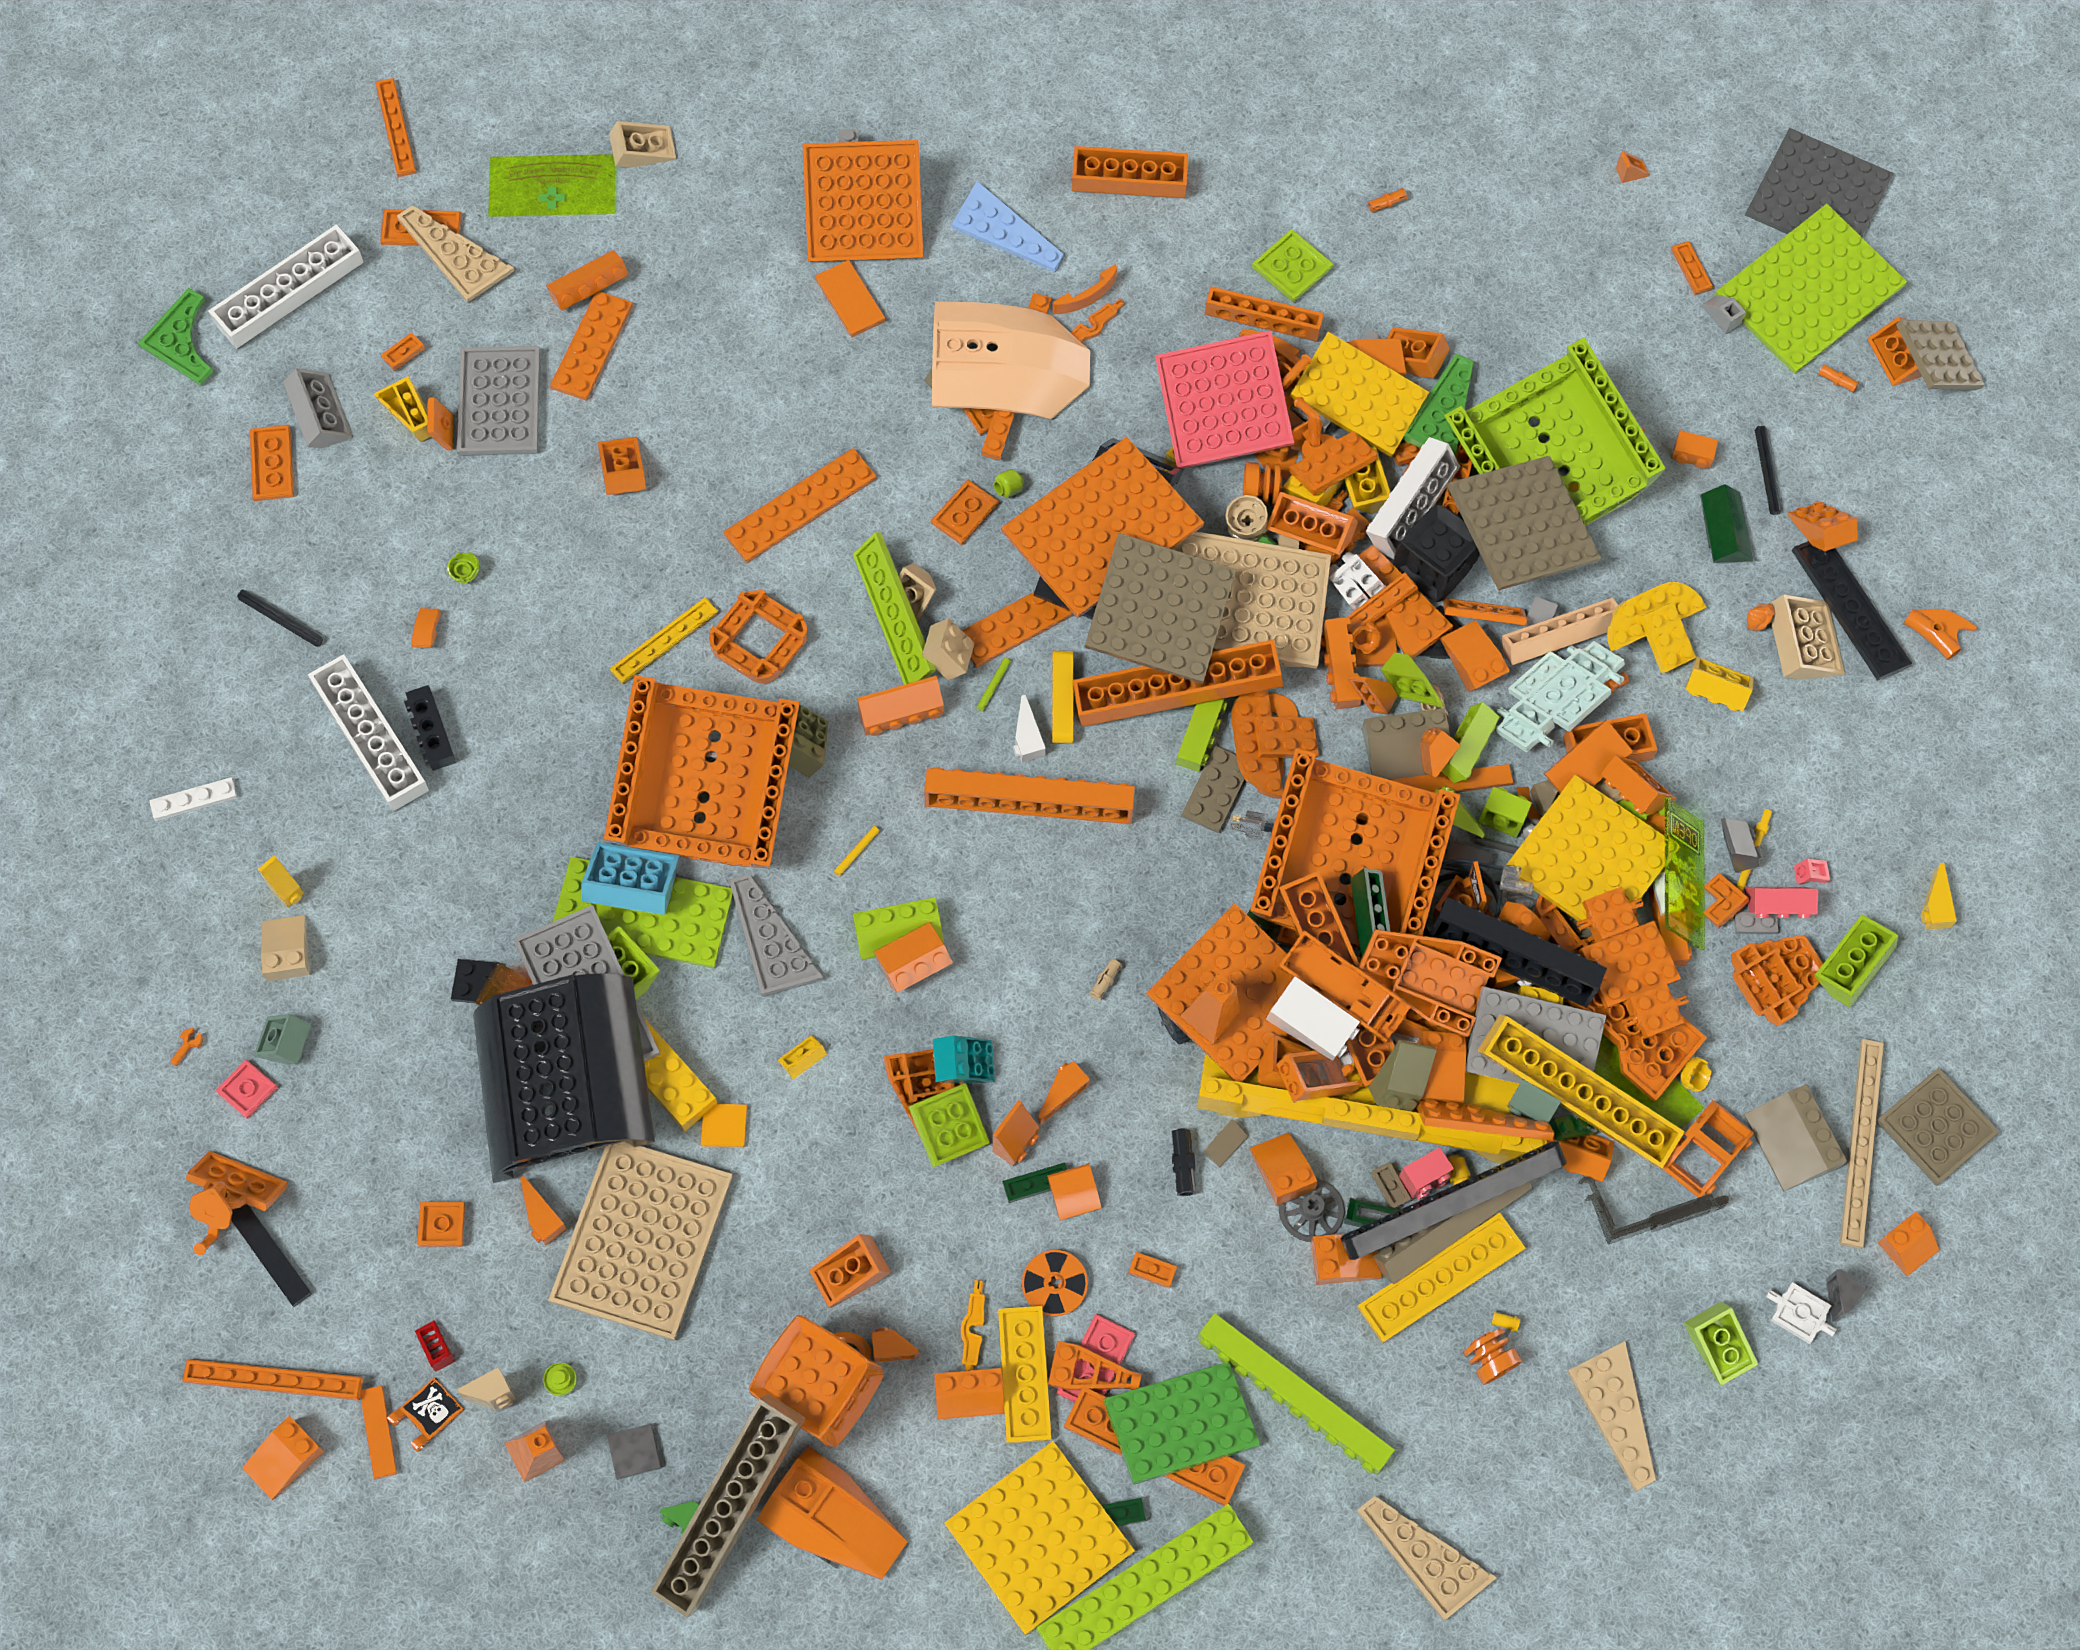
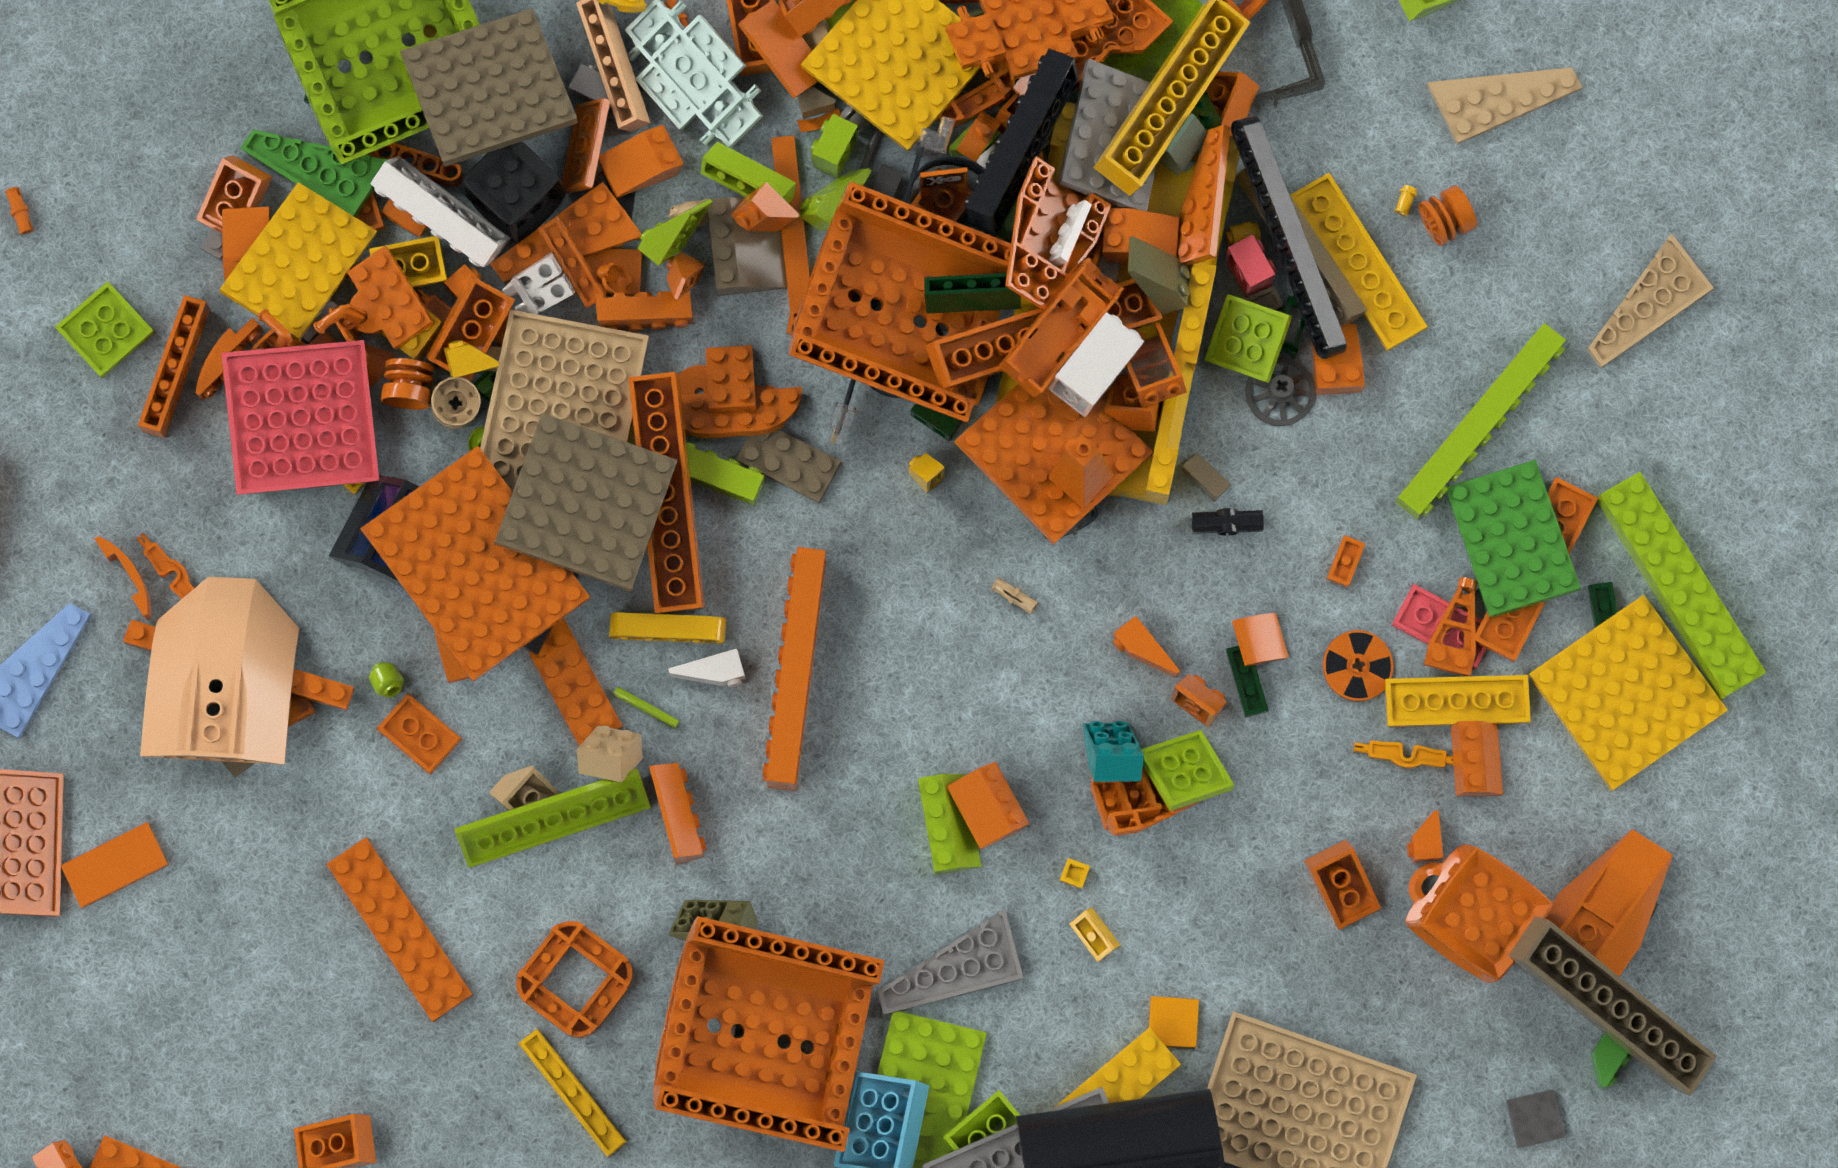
camera: 85 degrees left, 10 degrees up
(855, 1036) = (1074, 873): none -> yellow plate
(856, 851) = (849, 869): yellow bar -> none
(1212, 899) = (926, 471): none -> yellow slope
(1283, 520) = (466, 359): none -> yellow slope
(1284, 1168) = (1235, 416): orange slope -> none
(1356, 1173) = (1248, 338): none -> lime plate
(1435, 993) = (1069, 233): none -> white plate

